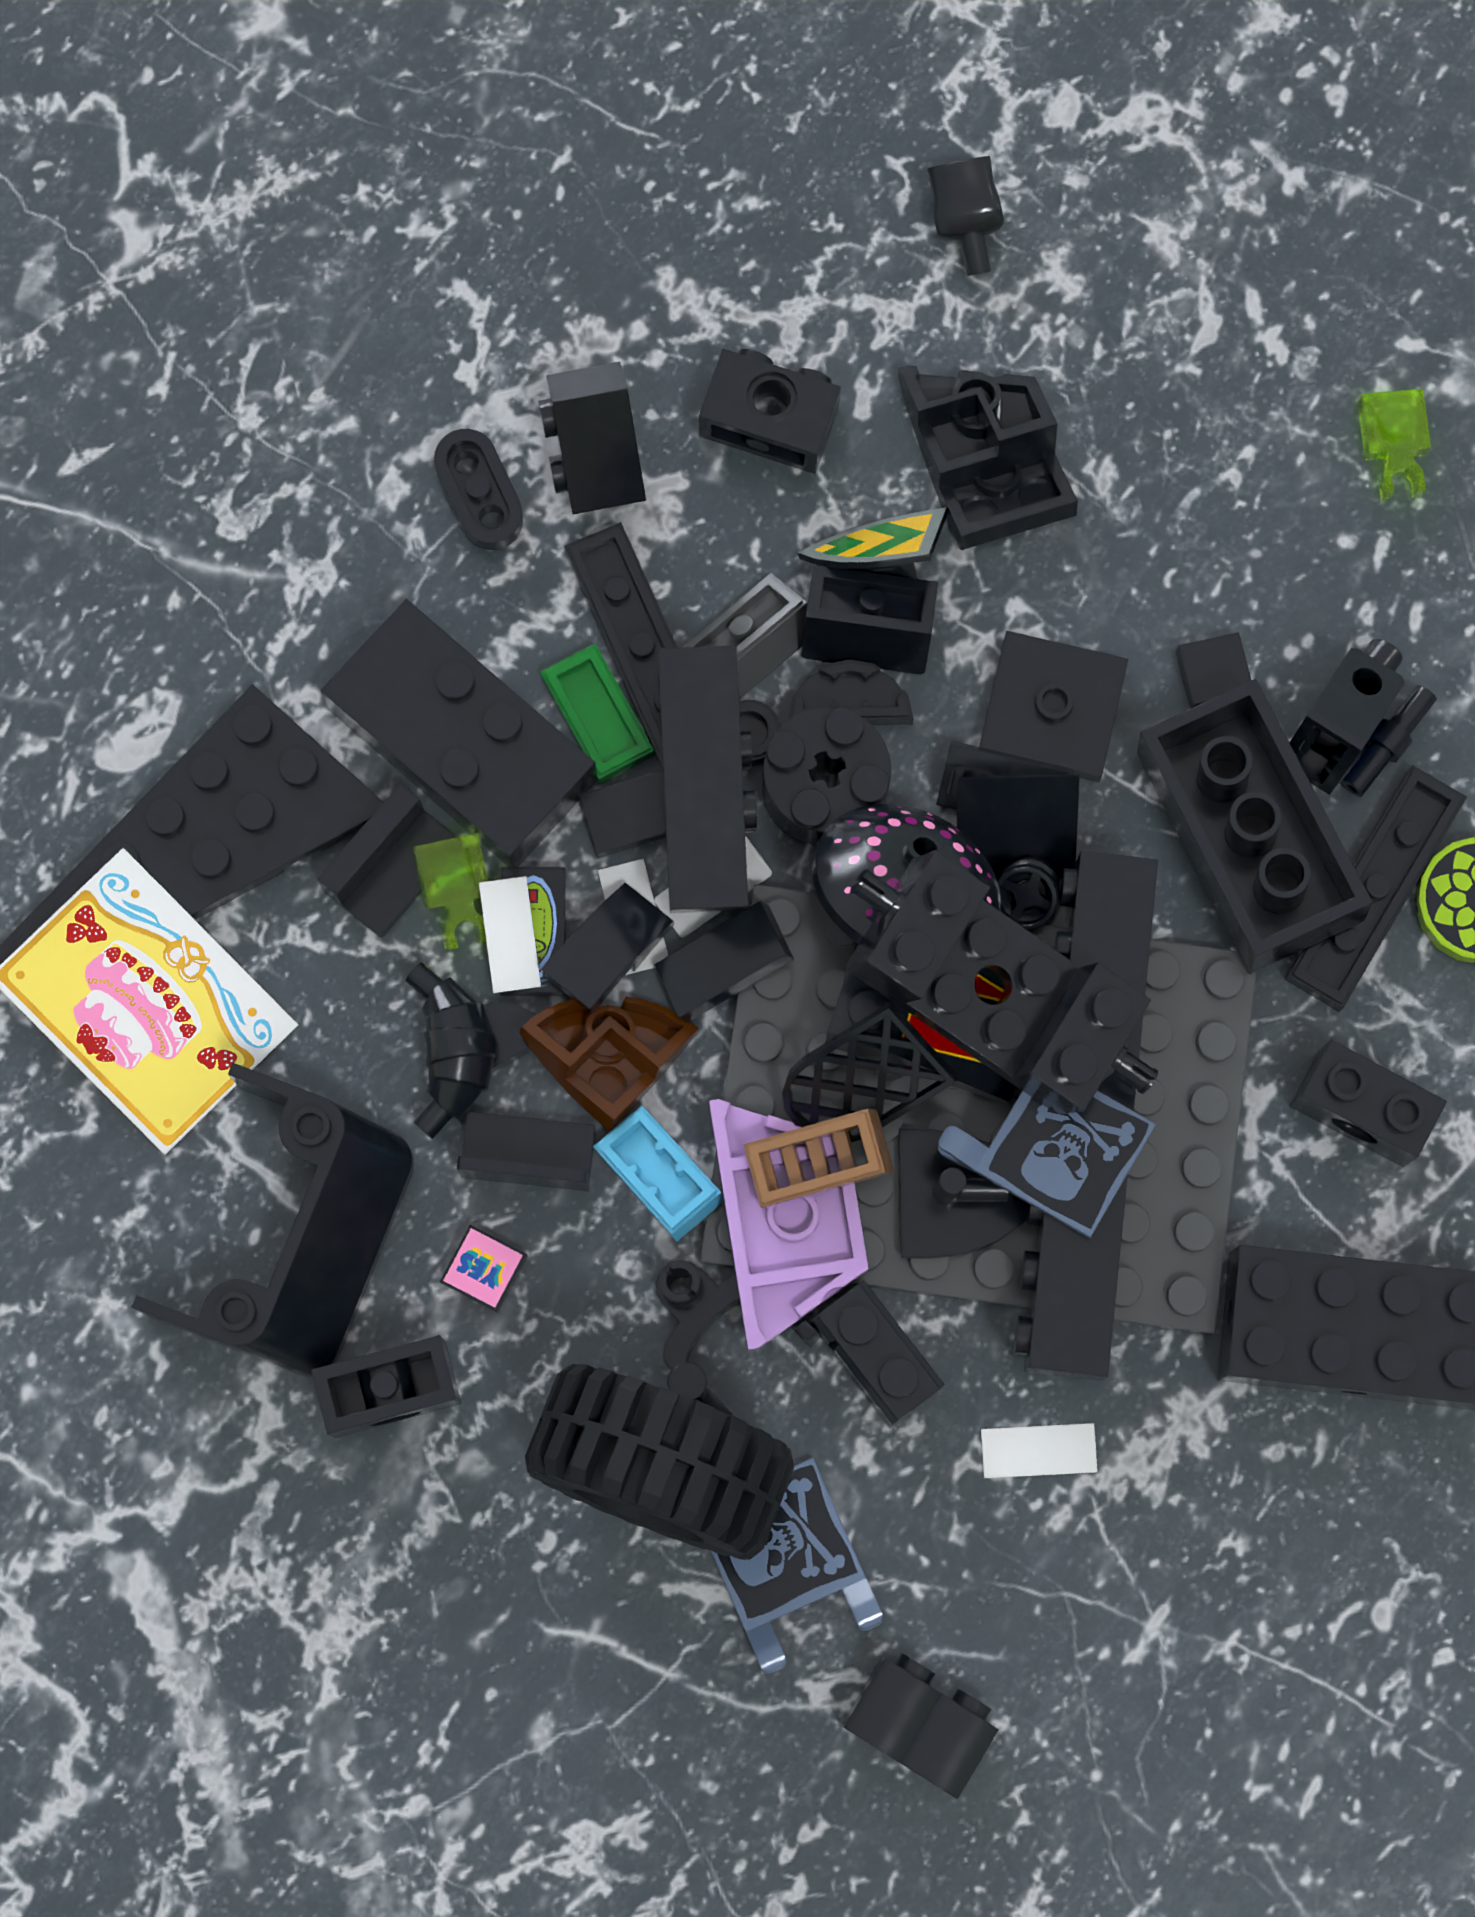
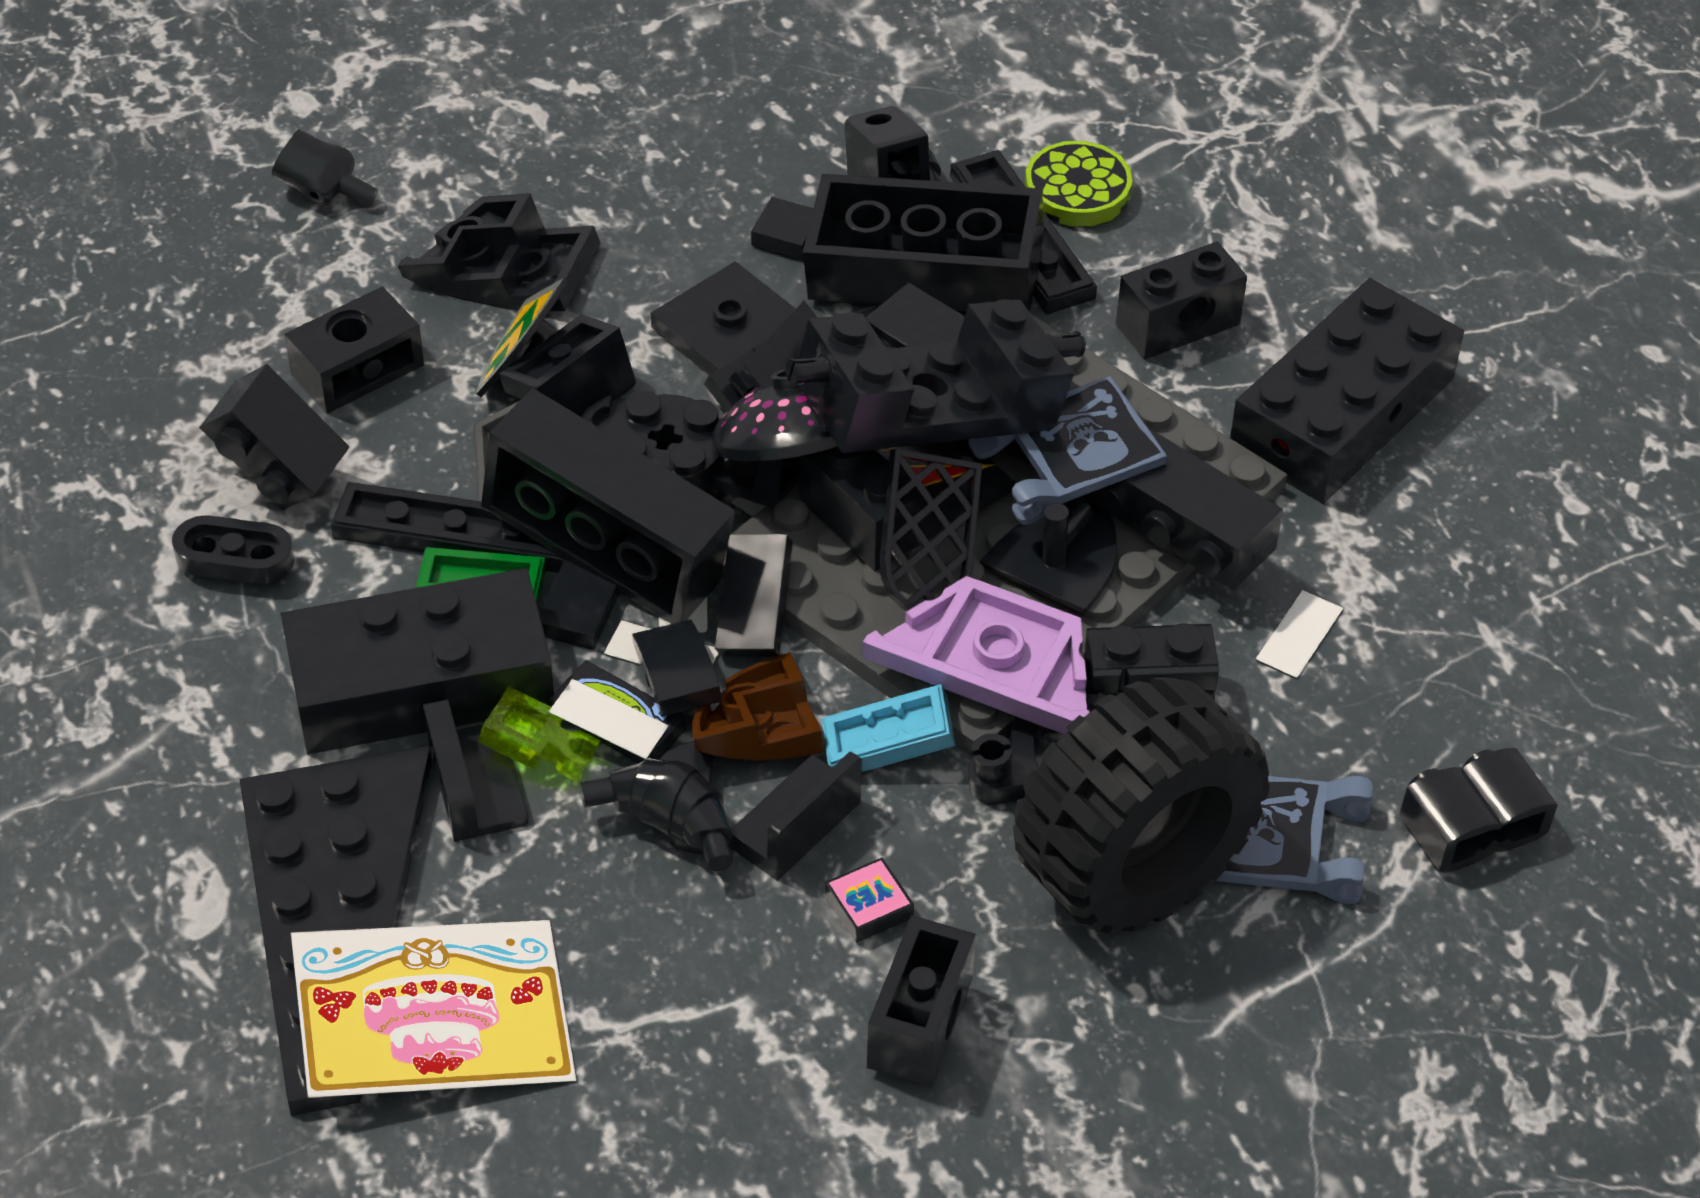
camera: 55 degrees left, 30 degrees down
(331, 1246) = (796, 1038): black windscreen -> none
(873, 1142) = (983, 549): medium nougat slope -> none
(1396, 430) = (708, 57): clear neon green plate -> none

